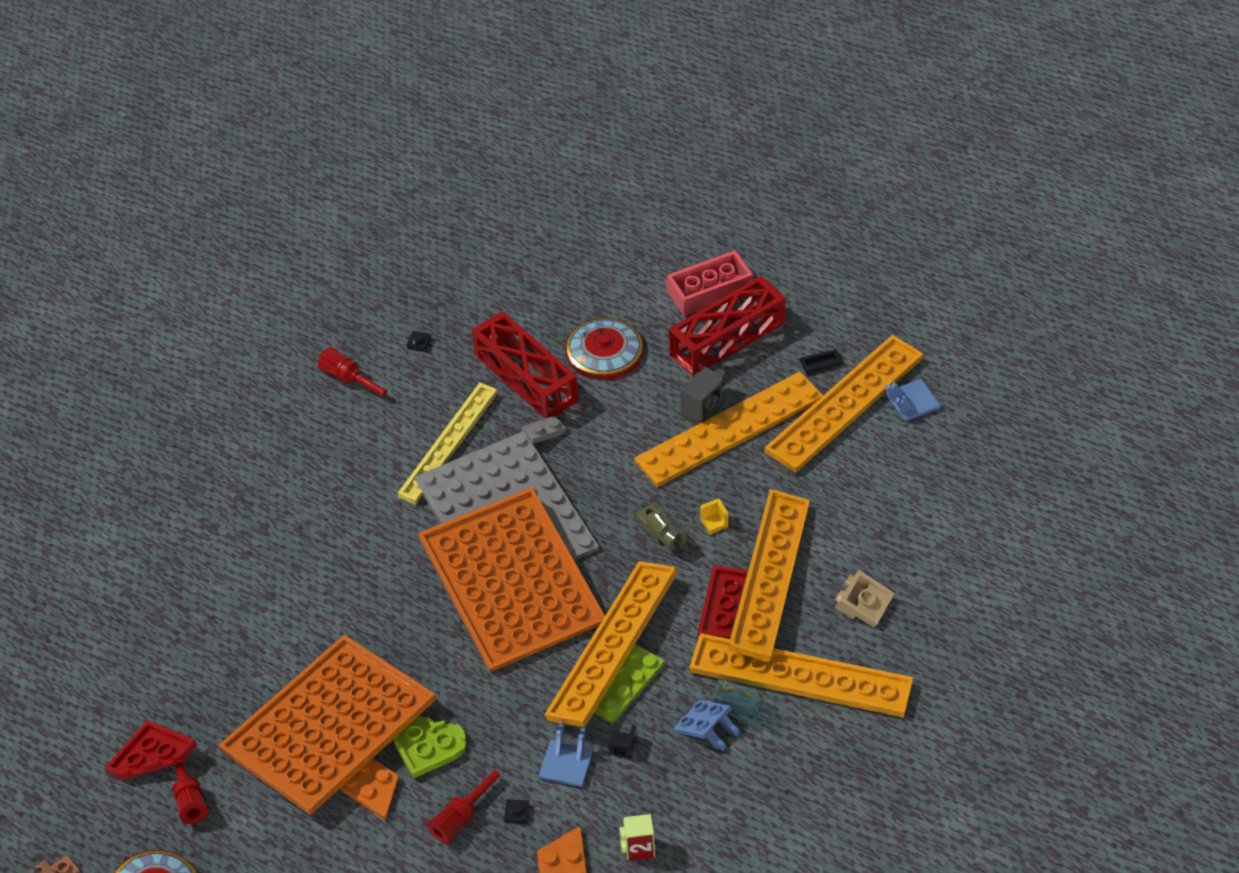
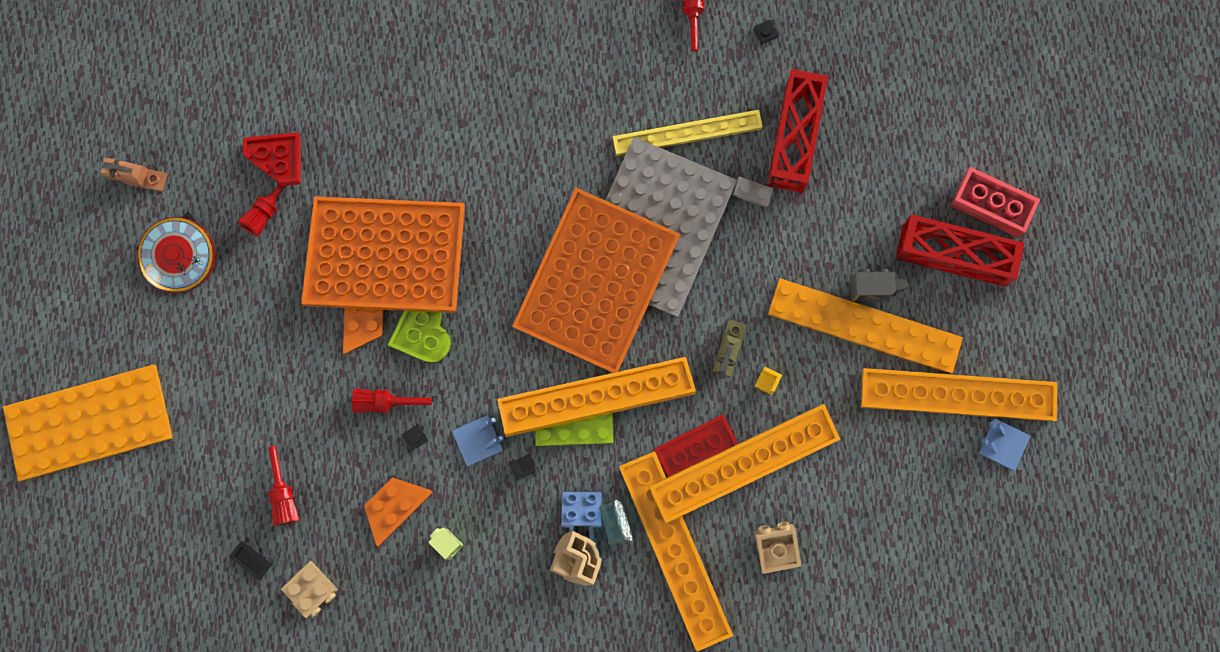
camera: 50 degrees right, 30 degrees up
(604, 348) = (868, 172): dish -> none
(743, 746) = (576, 559): none -> tan brick
(820, 361) = (987, 345): black tile -> none

